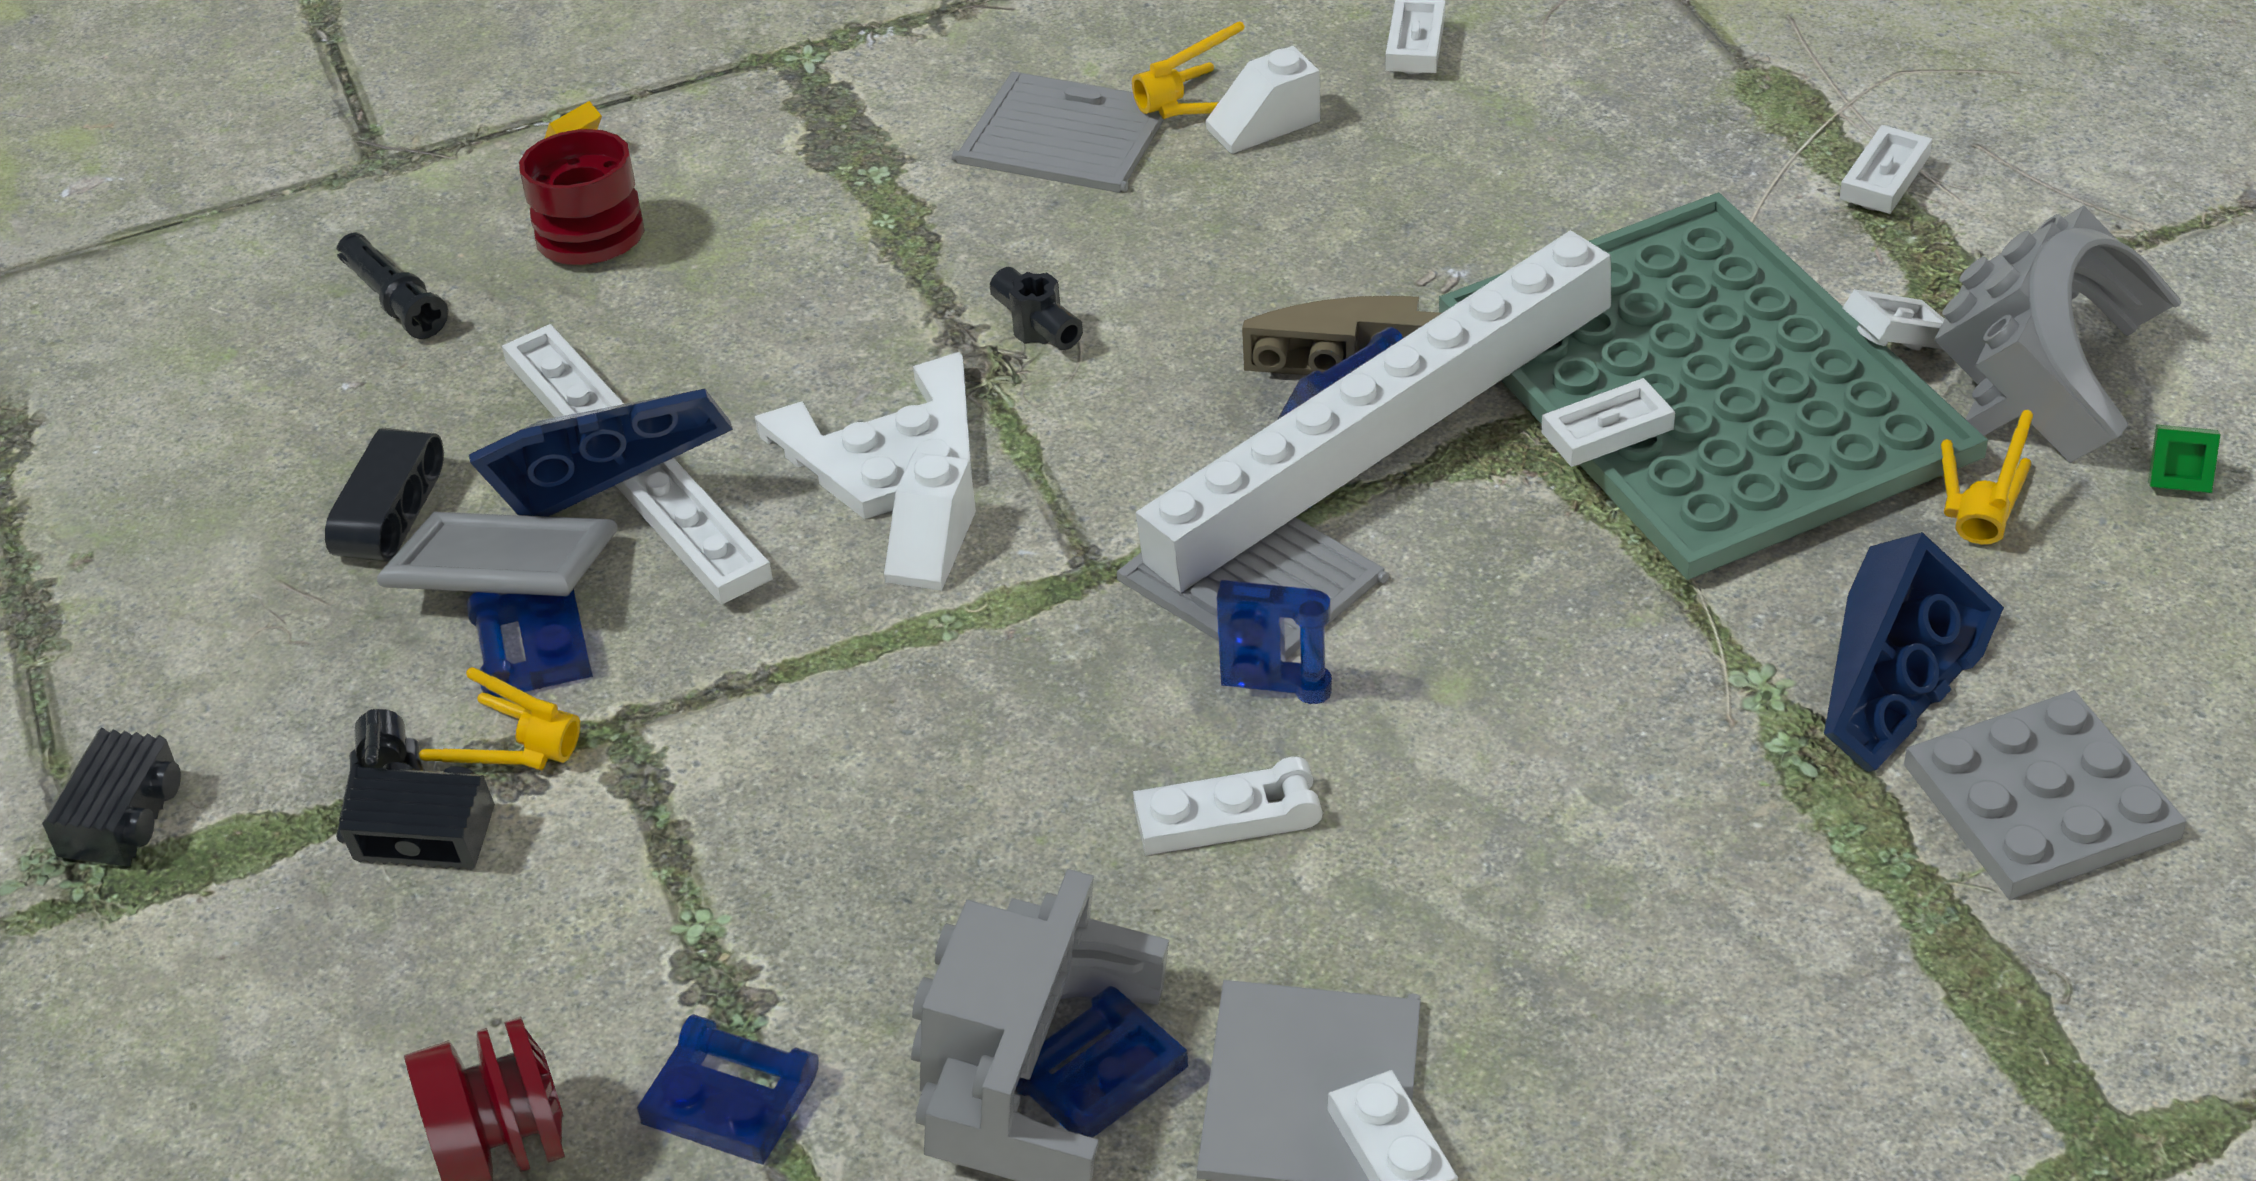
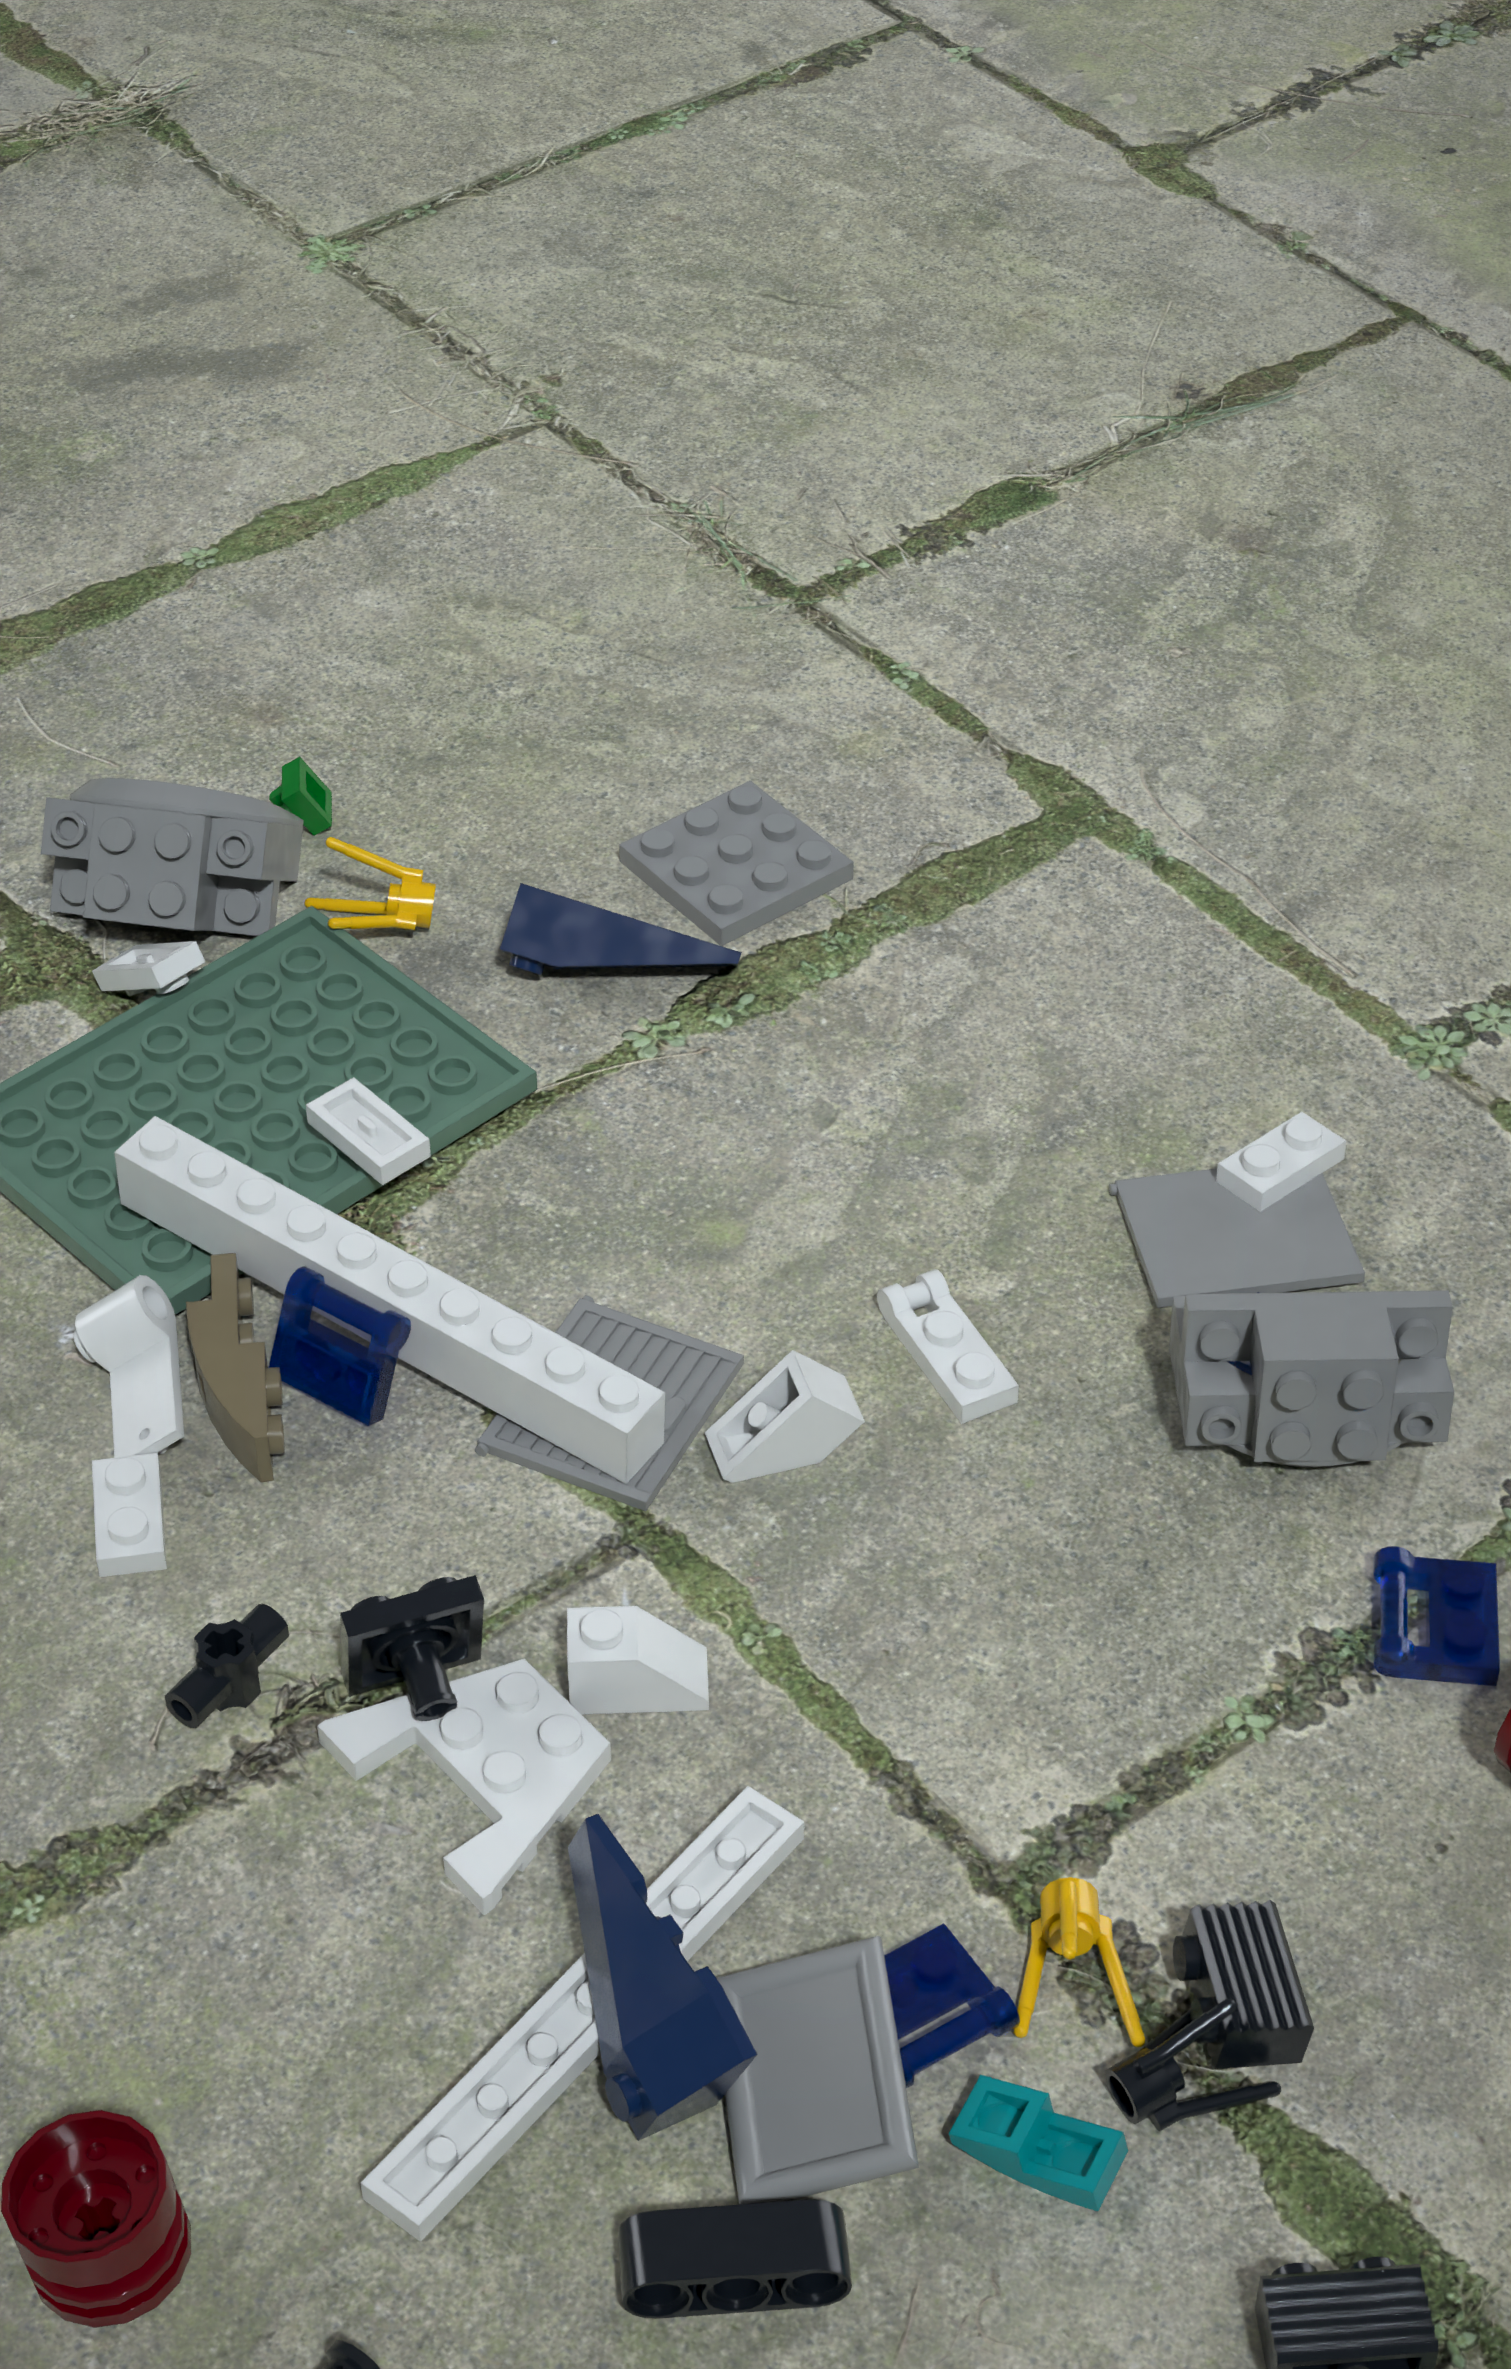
camera: 110 degrees left, 0 degrees up
(387, 675) = (1027, 2141): none -> teal slope
(986, 382) = (414, 1642): none -> black plate
(1155, 666) = (785, 1421): none -> white slope
(1229, 283) = (128, 1515): none -> white plate
(1254, 639) = (761, 1304): clear blue plate -> none
(1419, 272) = (137, 1342): none -> white door

